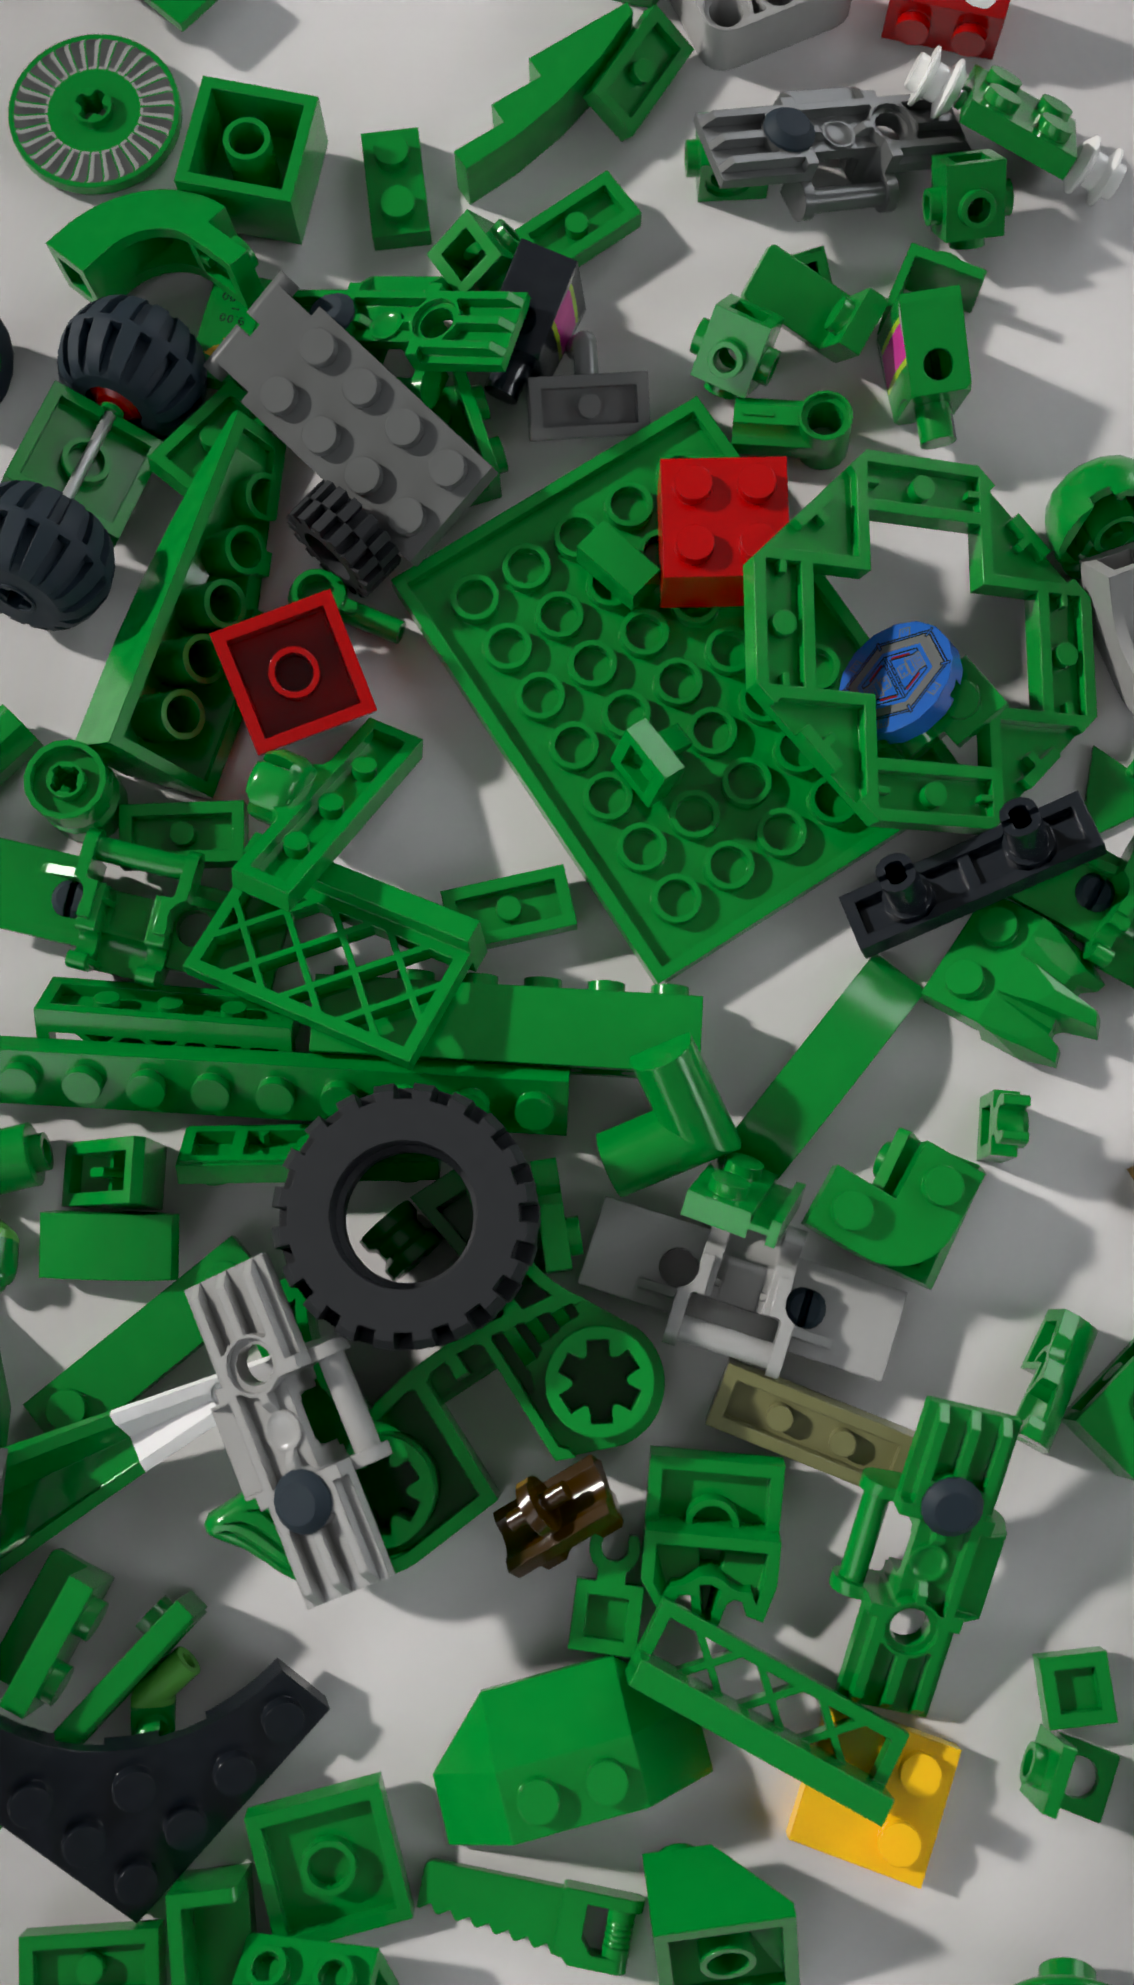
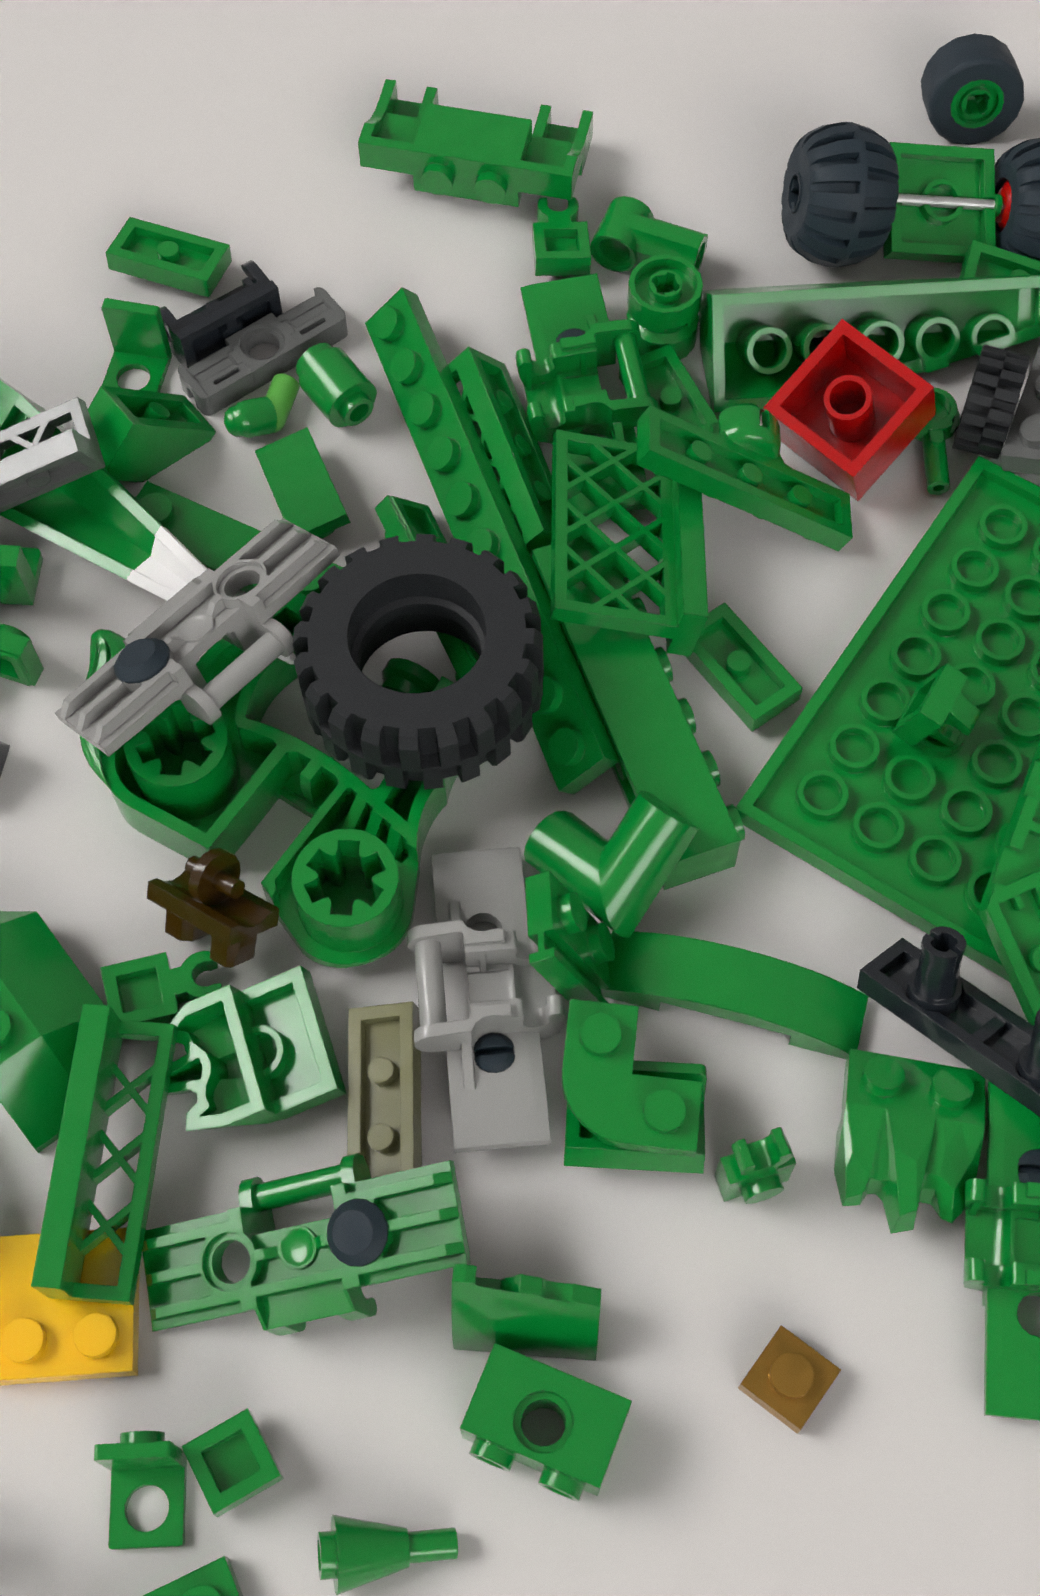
camera: 65 degrees right, 15 degrees down
(115, 1174) = (364, 472): green slope -> none
(559, 1233) = (472, 811): green plate -> none

